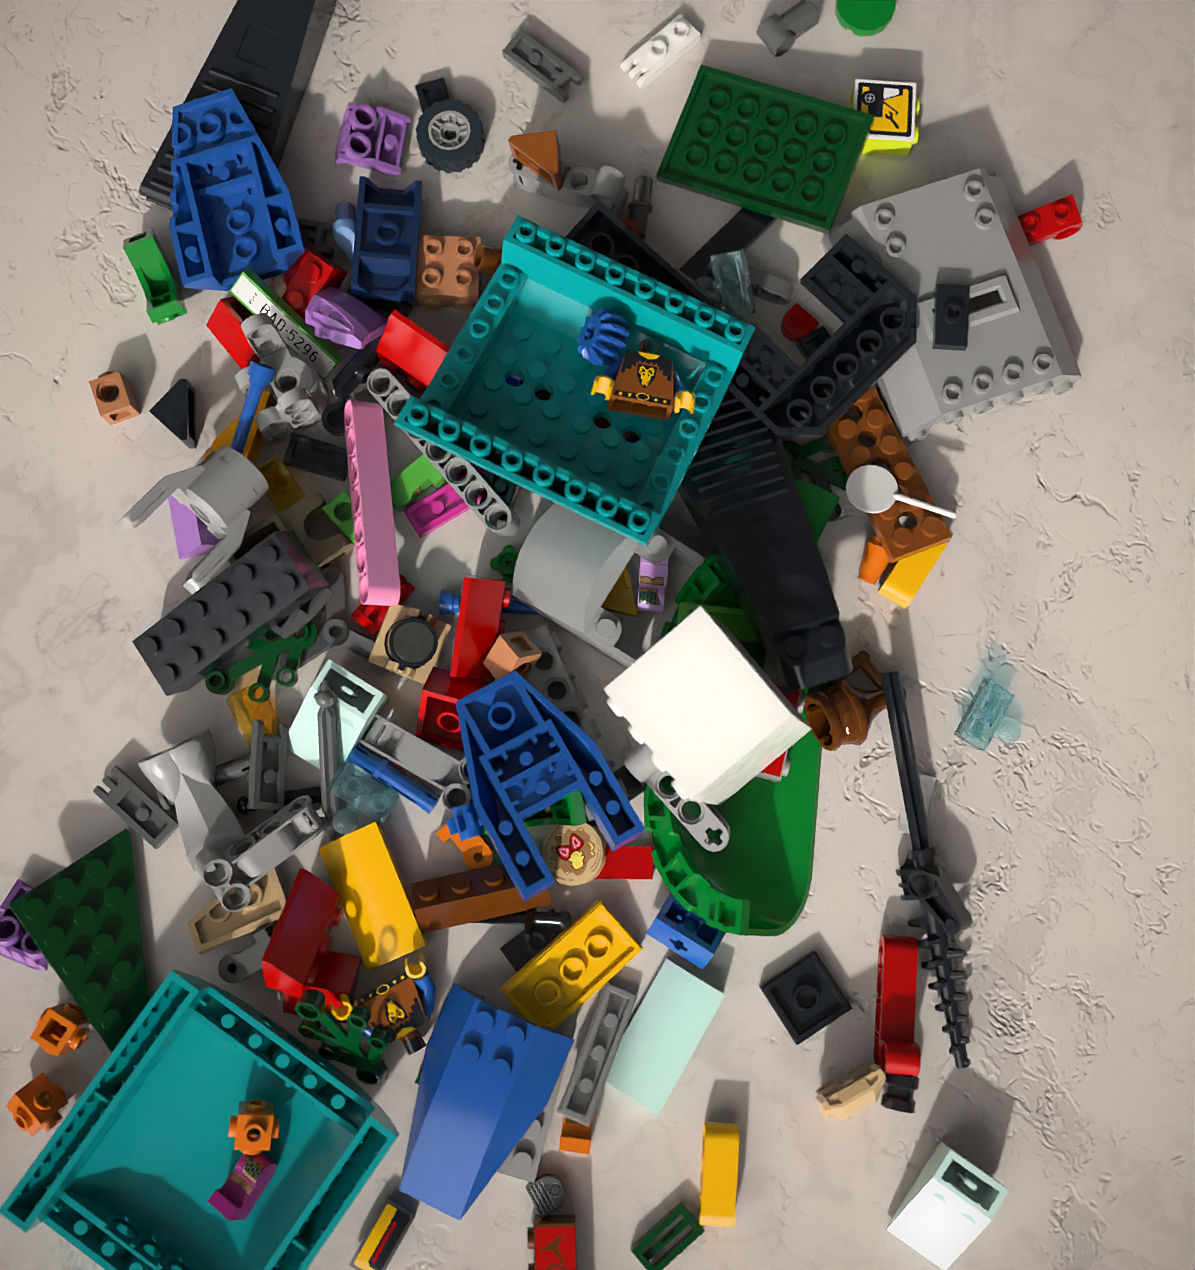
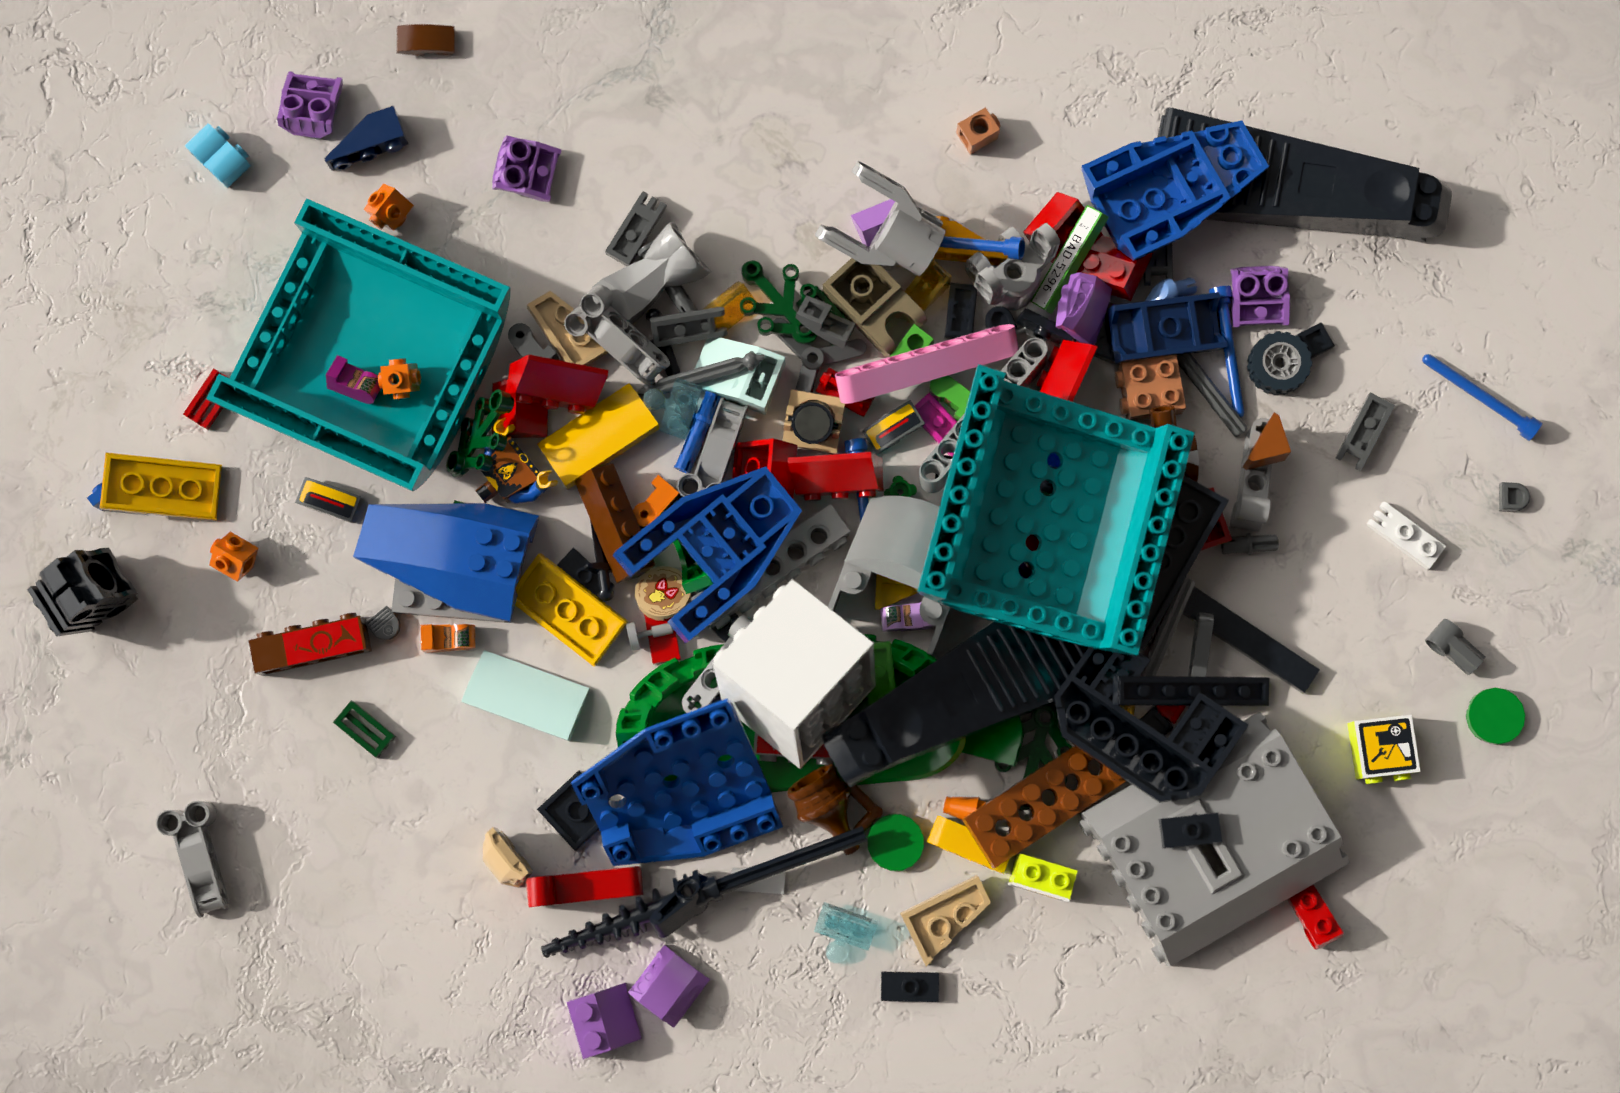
camera: 80 degrees right, 0 degrees up
(51, 1029) = (449, 203): orange brick -> none
(92, 935) = (527, 217): dark green wing -> none
(156, 277) = (1091, 141): green arch -> none
(178, 412) = (975, 186): black slope -> none
(230, 612) = (807, 268): black brick -> none
(431, 185) = (1230, 355): none -> blue piece
(434, 556) = (893, 427): none -> slope
(465, 822) = (668, 494): blue gear -> none
(471, 211) = (1211, 394): none -> dark grey axle
(512, 653) = (816, 506): nougat brick -> none
(597, 1054) = (502, 643): light grey tile -> none
(603, 336) = (1102, 526): blue gear -> none
(616, 867) = (659, 630): none -> light grey wheel
(644, 384) = (1069, 569): torso -> none
(685, 933) = (611, 696): blue brick -> none
(719, 1174) = (422, 761): yellow beam -> none
(731, 283) = (1187, 632): clear light blue plate -> none
(765, 148) = (1325, 644): dark green plate -> none
(791, 298) = (1184, 689): none -> black tile
(836, 866) = (698, 812): none -> blue wedge
(875, 490) = (1023, 793): white piece -> none
(899, 643) = (895, 842): none -> green tile
(900, 1092) = (512, 901): black wheel -> none
(947, 1206) = (427, 954): light aqua slope -> none
(970, 487) = (1042, 877): none -> neon yellow piece
(987, 606) = (944, 916): none -> tan wing
(1022, 927) = (668, 986): none -> medium lavender slope
(1051, 1009) = (604, 1020): none -> medium lavender slope
(1058, 658) = (910, 986): none -> black plate

